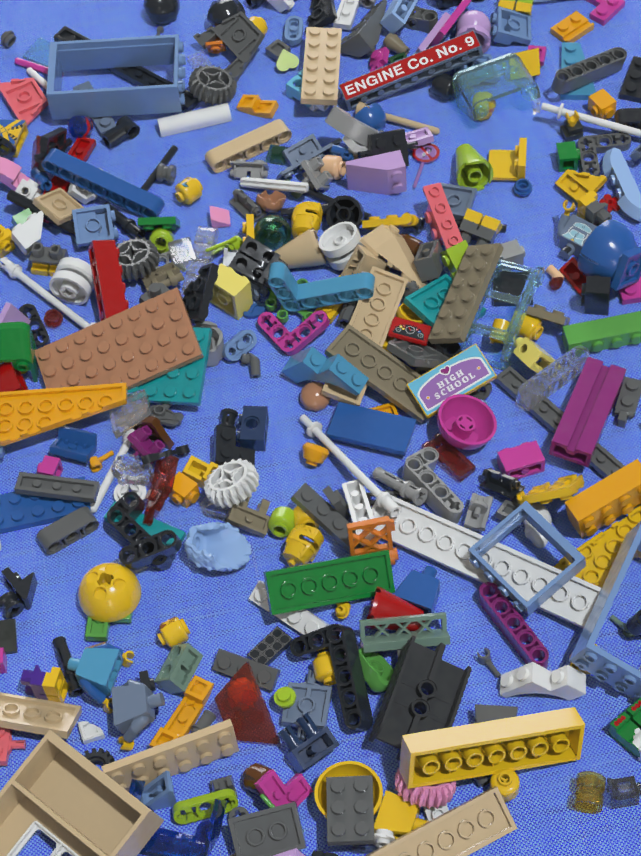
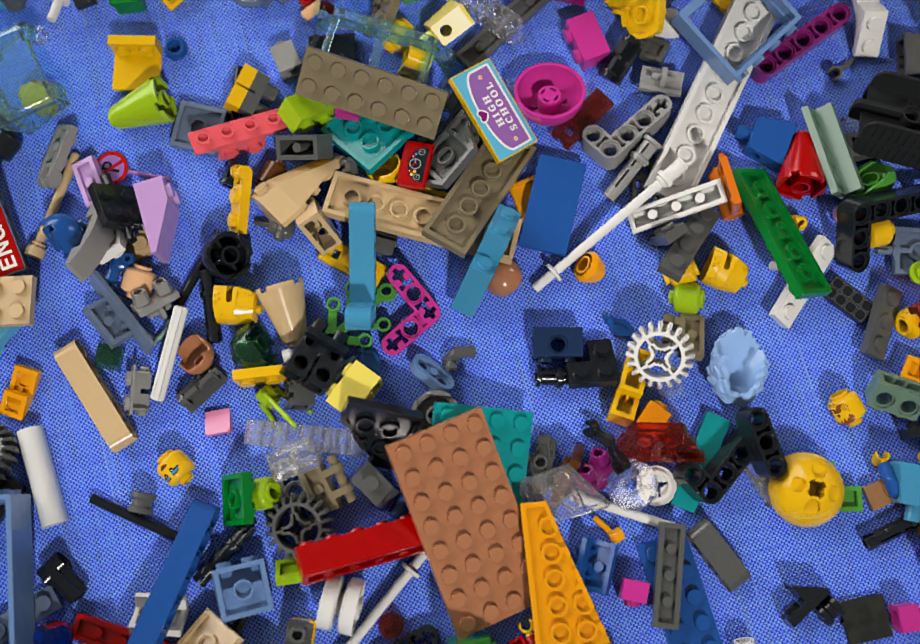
camera: 100 degrees left, 25 degrees up
(265, 476) = (619, 327): none -> blue piece
(339, 243) = (280, 253): white wheel -> none
(434, 118) = (57, 156): none -> light grey hinge

